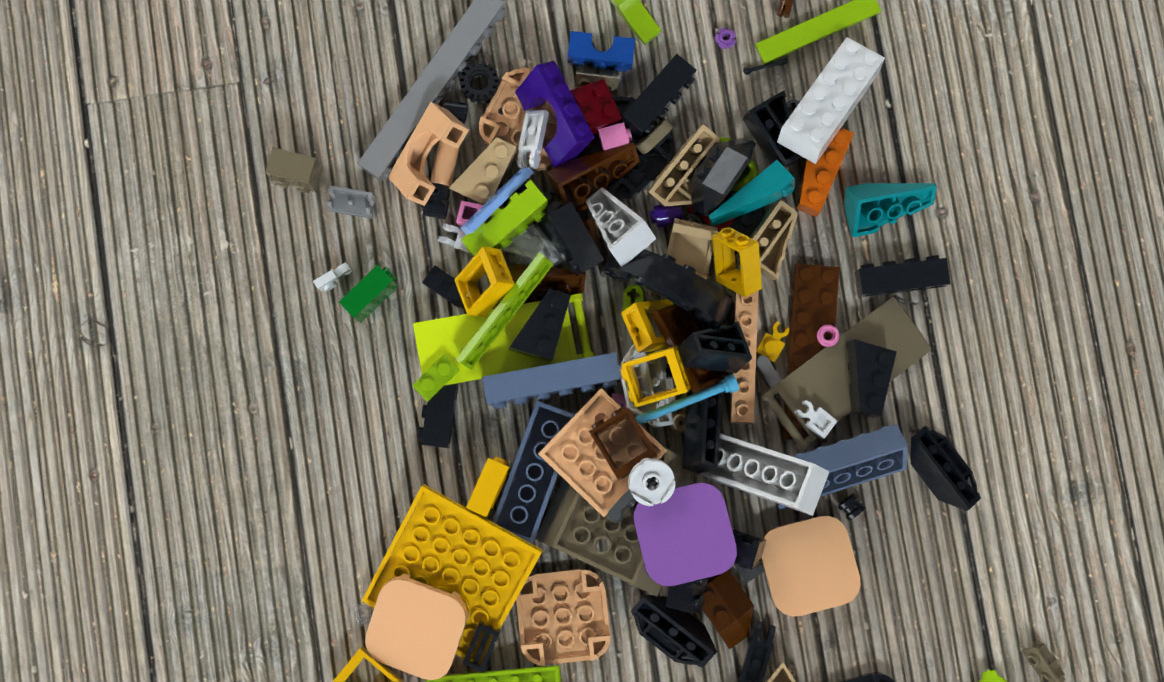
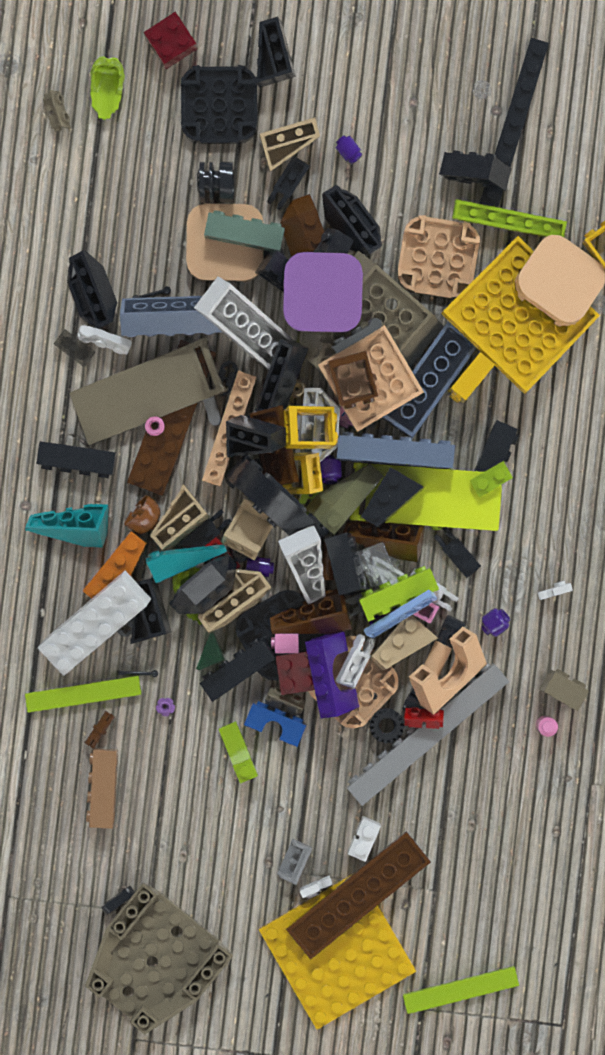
camera: 165 degrees left, 5 degrees up
(304, 128) = (546, 726): none -> bright pink brick
(351, 202) = (522, 650): light grey hinge -> none
(369, 293) = (528, 567): green brick -> none
(389, 225) = (495, 622): none -> dark purple head
(448, 96) = (415, 717): none -> red hinge
(487, 261) = (417, 551): yellow window -> none
(488, 630) = (502, 262): black tile -> none
(505, 311) = (419, 518): lime tile -> none
(595, 313) = (340, 500): none -> olive wedge
(618, 341) = (330, 470): none -> dark purple head
(647, 469) = (340, 329): white plate -> none
(660, 130) = (258, 631): dark tan beam -> none
(691, 104) = (212, 652): none -> clear green slope
(728, 384) = (252, 405): medium azure piece -> none
(749, 277) = (215, 521): yellow window -> none
(769, 416) = (232, 376): none -> black beam
(771, 345) = (203, 432): yellow plate -> none
(792, 581) = (244, 232): none -> sand green brick
(809, 233) = (144, 516): none -> dark orange cylinder
(818, 421) = (183, 357): white plate -> none
(844, 630) = (216, 182): none -> black wheel
(851, 506) = (176, 280): black wheel -> none
(859, 493) = (166, 290): none -> black hinge
(869, 377) = (131, 381): black wedge -> none
(913, 417) = (104, 339): none -> white hinge
(942, 399) = (74, 348): none -> clear smoke plate

